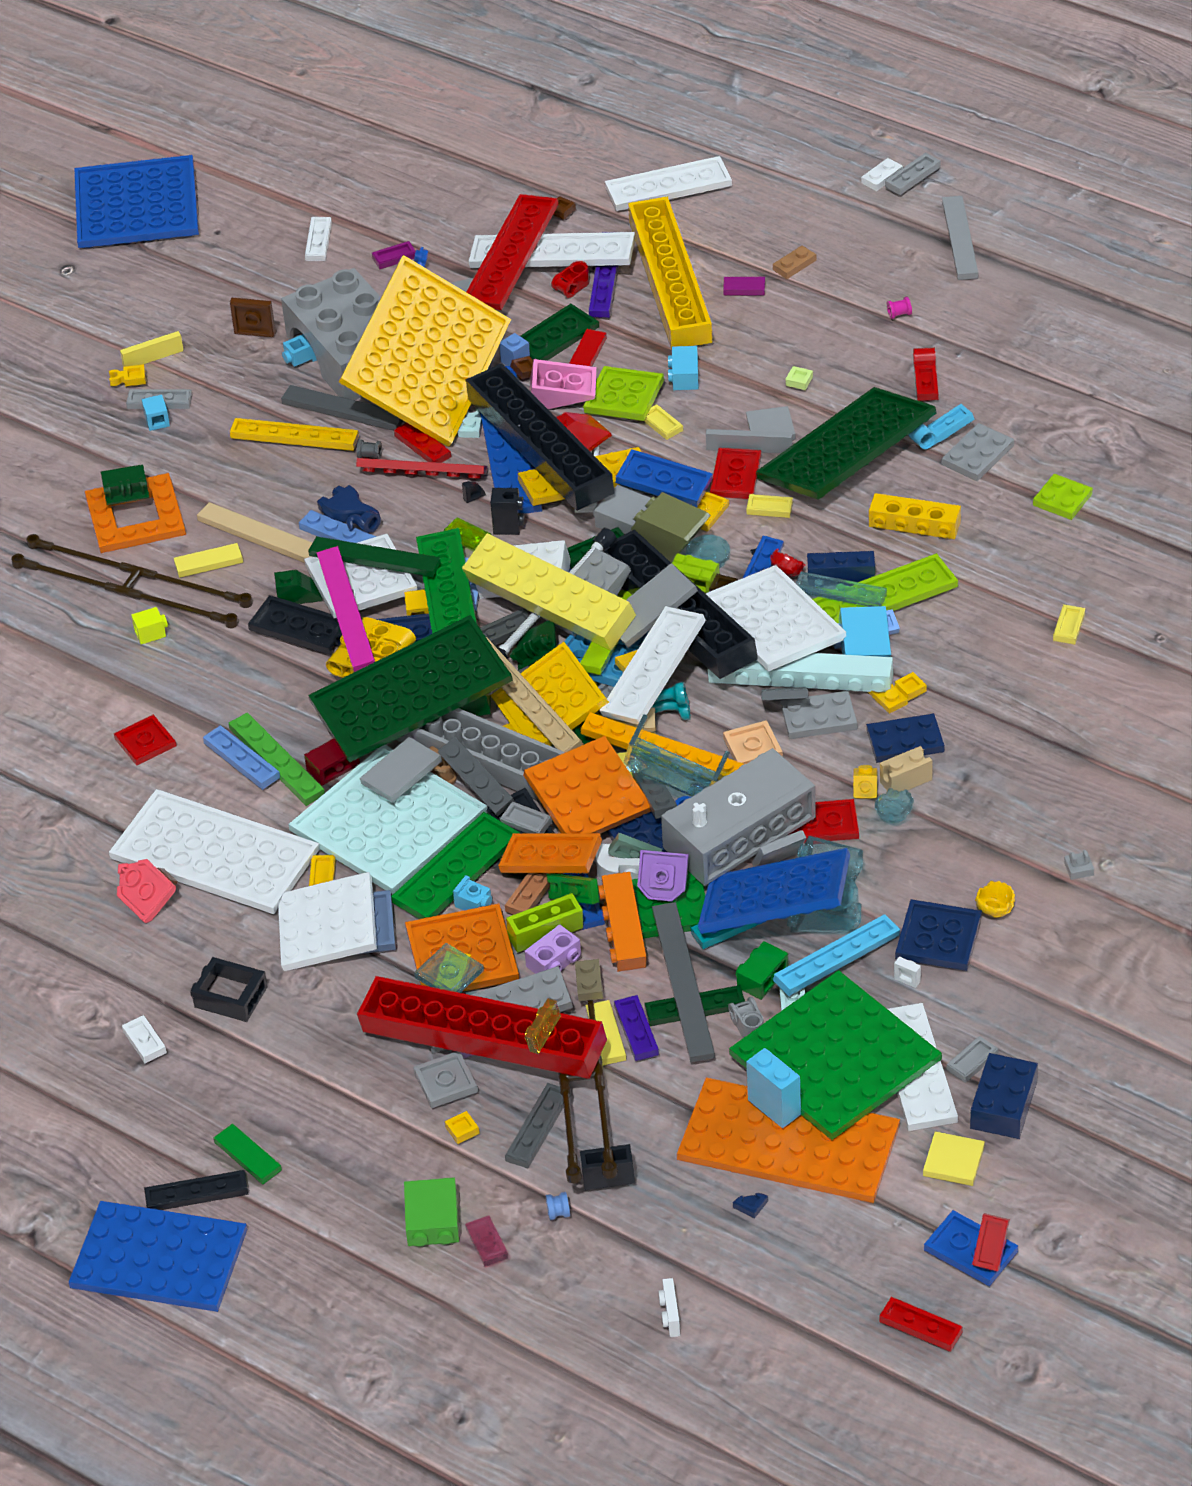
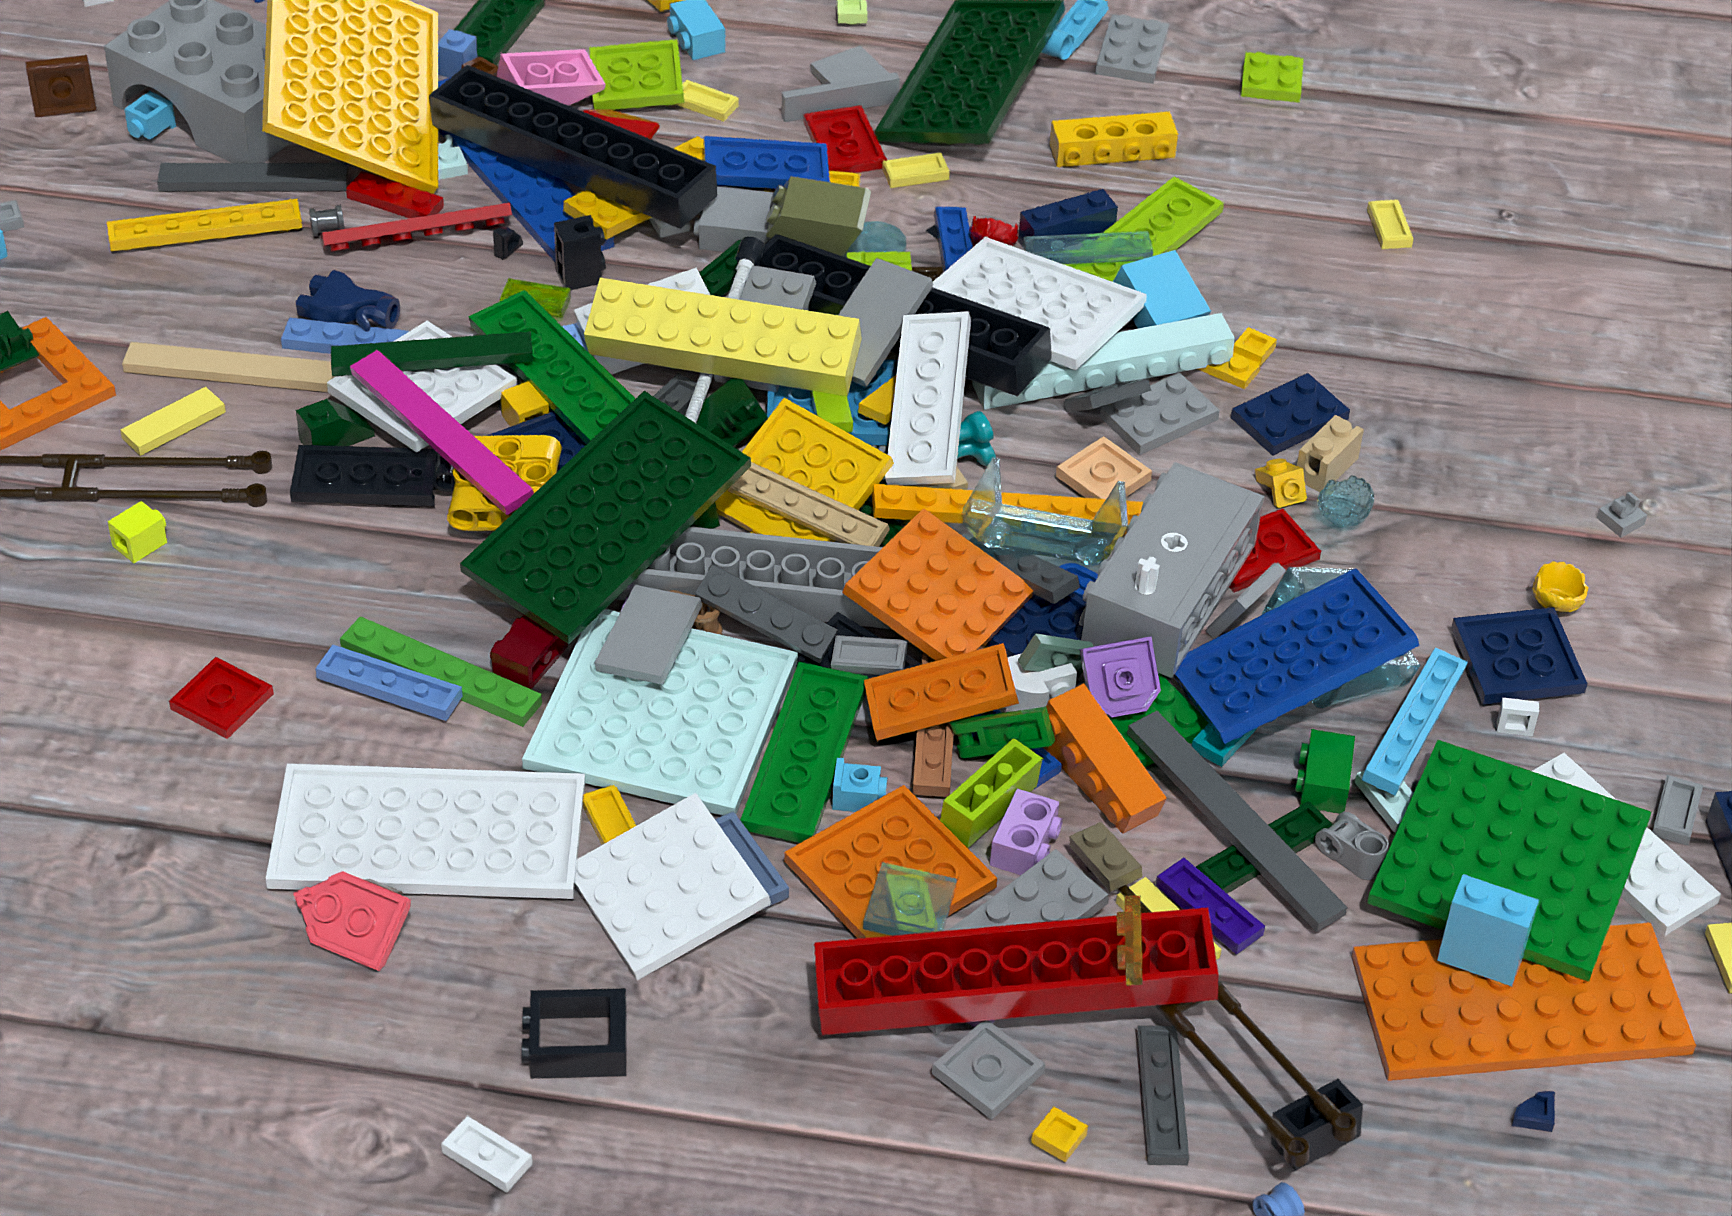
camera: 30 degrees left, 0 degrees up
(589, 348) = (550, 29): red tile -> none

